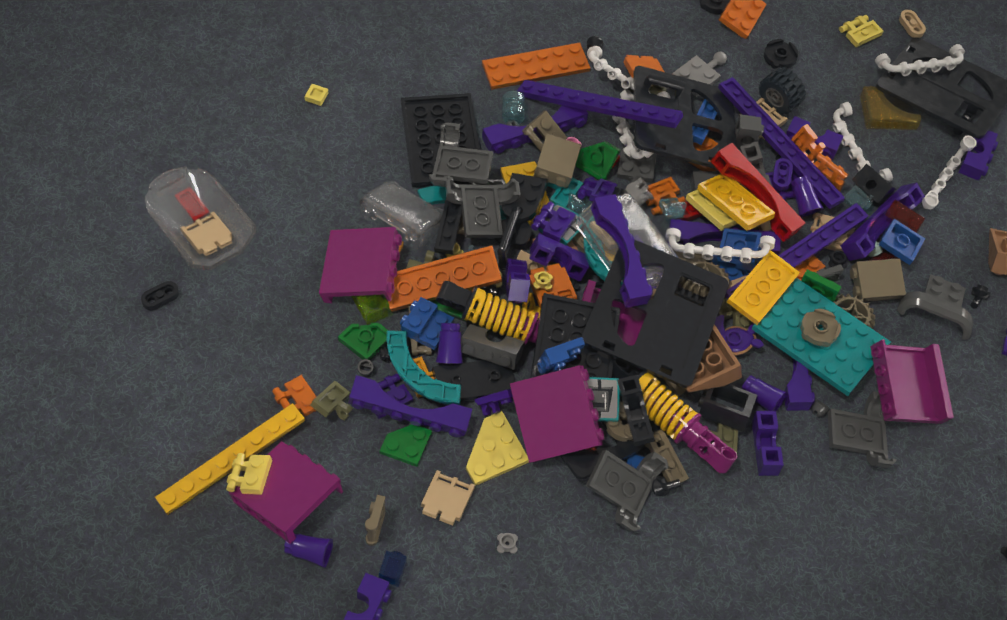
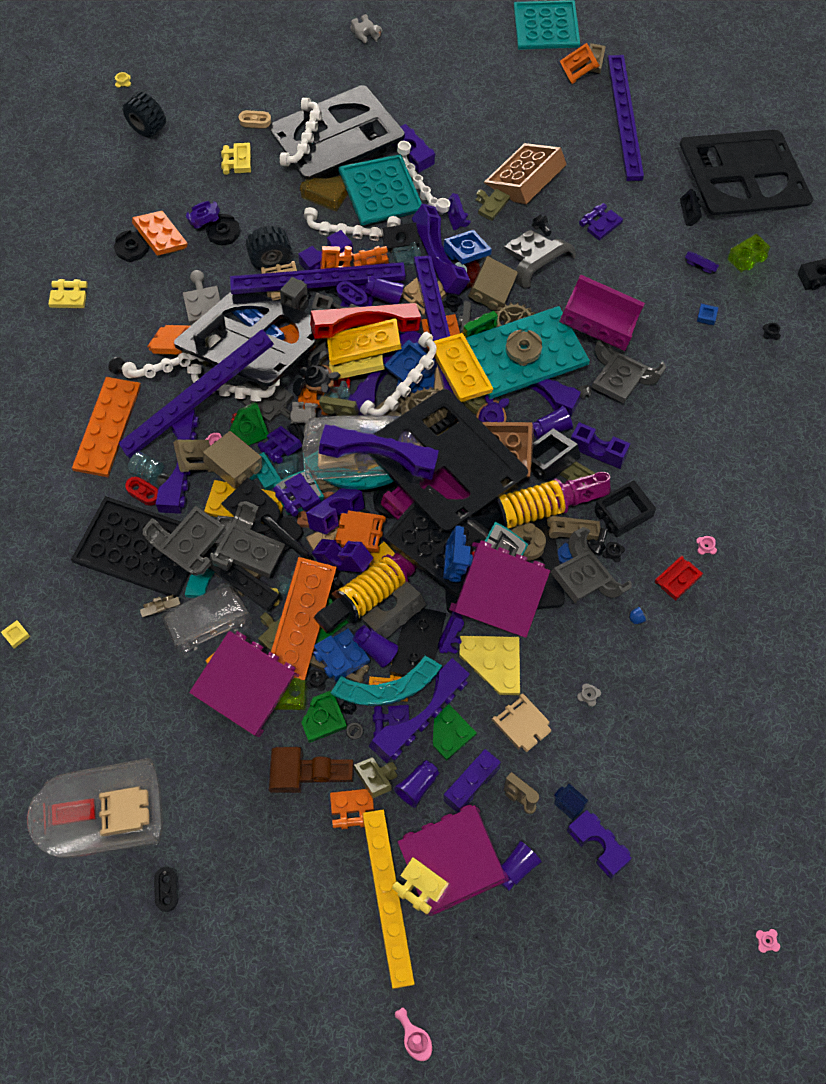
camera: 55 degrees left, 5 degrees up
(119, 535) = (416, 1039): none -> bright pink piece
(306, 337) = (290, 770): none -> reddish brown plate
(344, 436) = (417, 783): none -> dark purple plant
(380, 479) = (466, 786): none -> dark purple arch
(391, 172) = (158, 606): none -> dark tan plate
(392, 317) = (316, 674): none -> black plate
(492, 118) = (145, 489): none -> red plate
(542, 276) = (355, 529): light yellow plate -> none
(611, 550) = (637, 616): none -> blue hinge
(635, 410) = (532, 527): black arch -> none
(661, 216) = (338, 406): none -> olive plate
(666, 499) = (613, 546): none -> black plate
(673, 573) = (678, 578): none -> red plate
(677, 184) = (316, 377): none -> black animal
(721, 480) = (639, 499): none -> black window
(725, 580) = (706, 540): none -> bright pink plate
(785, 32) = (203, 213): none -> dark purple plate
(905, 215) = (444, 231): clear red plate -> none
(912, 147) = (380, 189): none -> teal tile
(933, 221) = (456, 214): none -> dark purple plate
(969, 245) = (493, 204): none -> olive plate
(987, 483) = (707, 314): none -> blue plate

